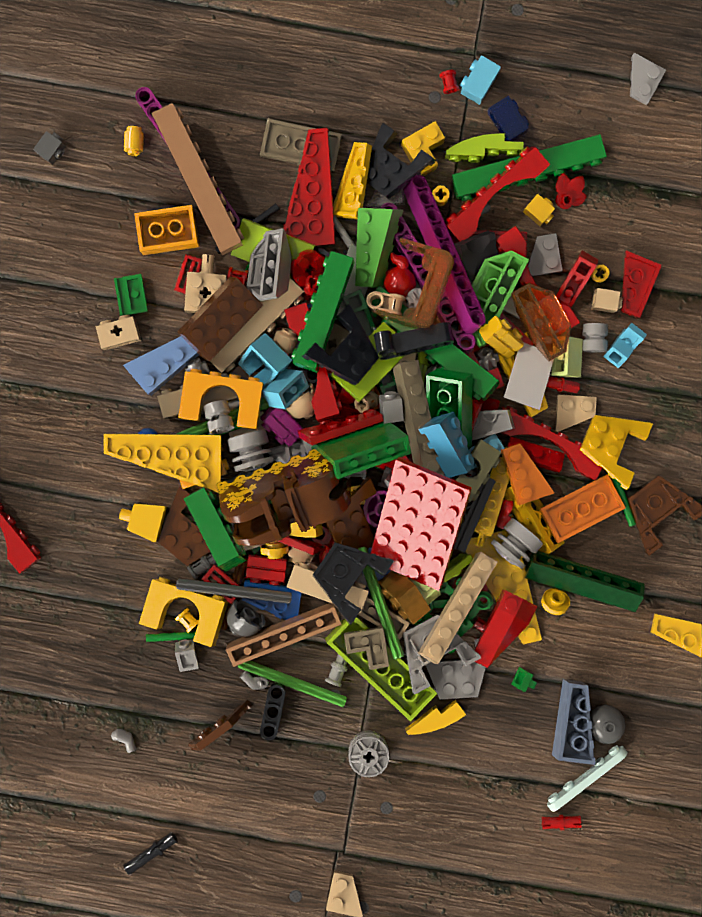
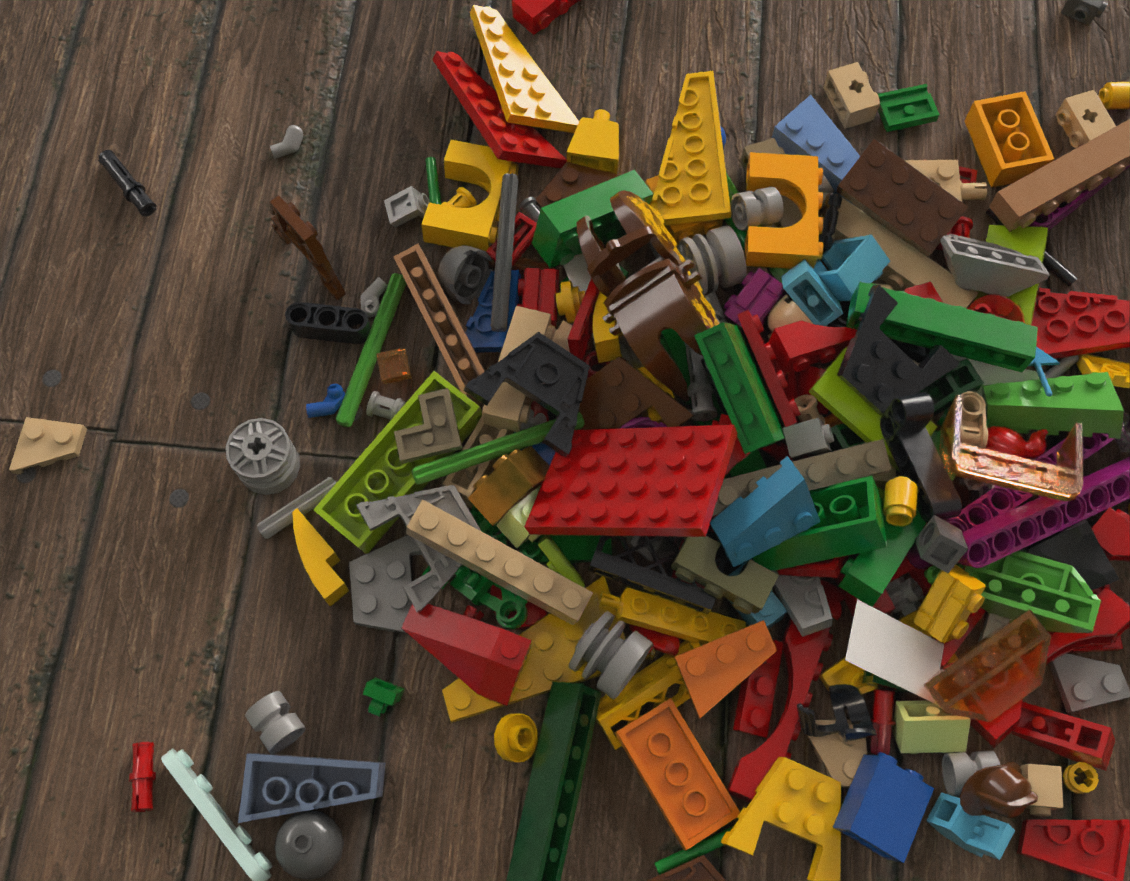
camera: 80 degrees right, 20 degrees down
(93, 570) = (519, 82): none -> yellow wing
(128, 586) = (482, 104): none -> red wing
(145, 168) = (1084, 118): none -> tan brick
(227, 367) = (830, 218): none -> black axle
(309, 668) = (393, 365): none -> clear orange tile
(330, 710) = (329, 405): none -> blue arm
(339, 246) = (1041, 359): none -> dark azure piece
(400, 731) = (304, 503): none -> light grey axle
(439, 358) = (900, 501): none -> yellow brick
(471, 339) = (941, 544): none -> dark grey brick
(536, 744) = (275, 722): none -> light grey wheel
(555, 398) = (842, 698): none -> black helmet
(609, 327) = (997, 791): none -> reddish brown piece
(610, 392) = (884, 806): none -> blue brick

